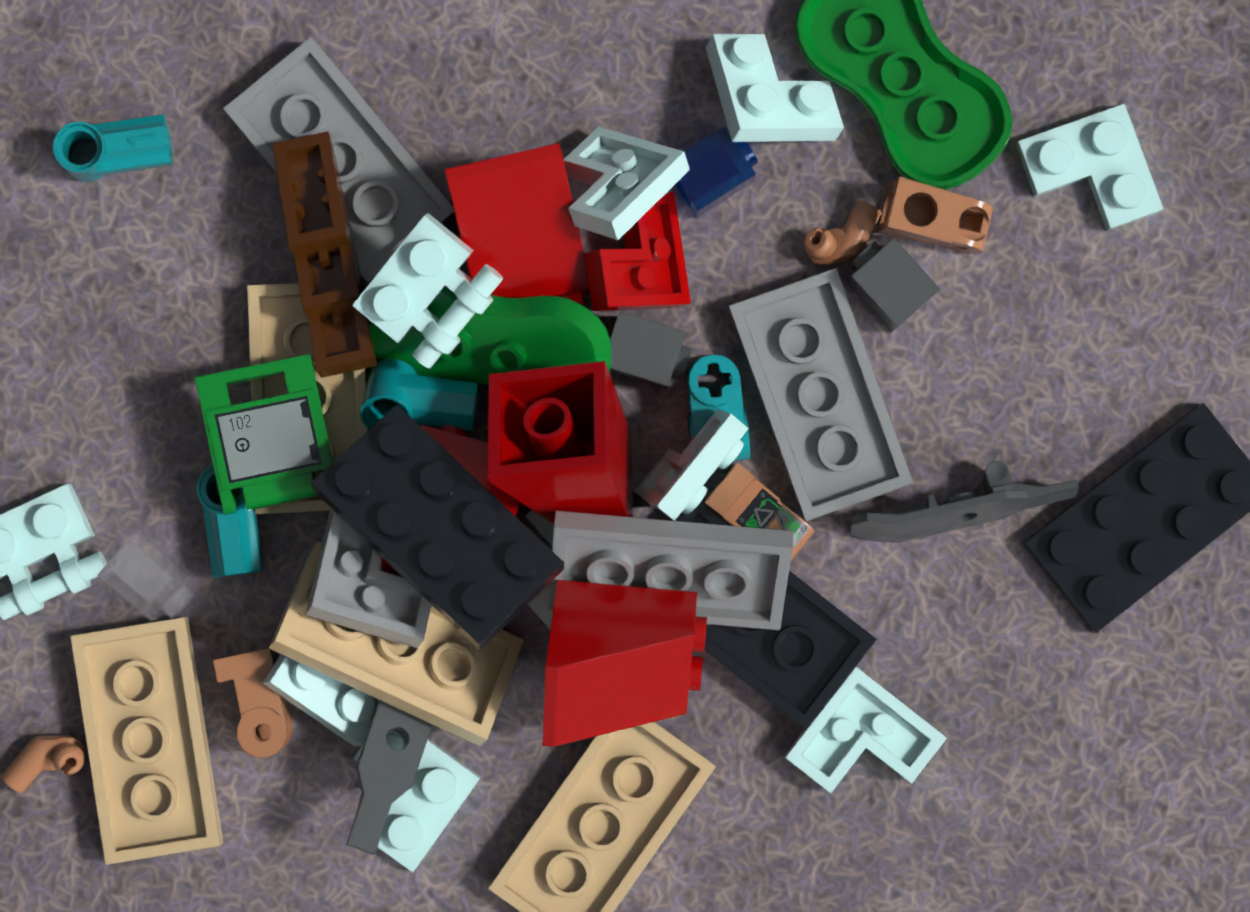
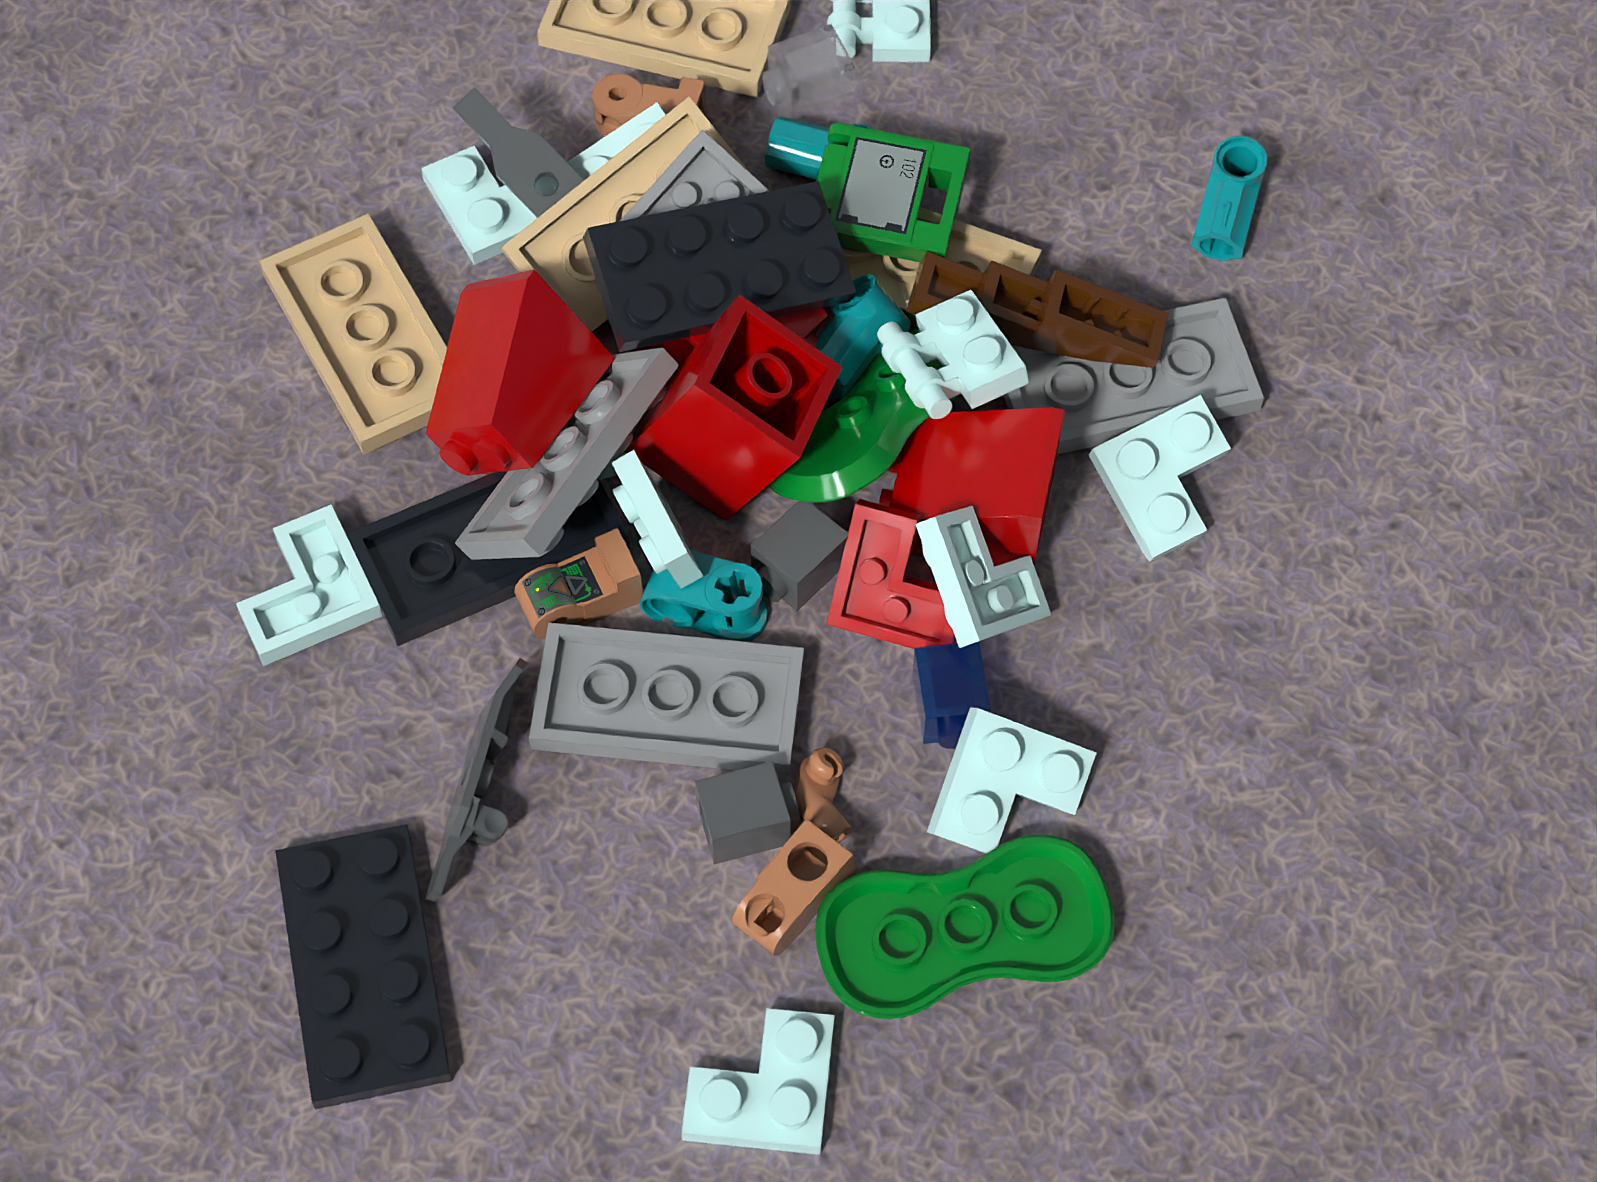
camera: 120 degrees right, 25 degrees down
(420, 105) = (1145, 470): none -> light aqua plate

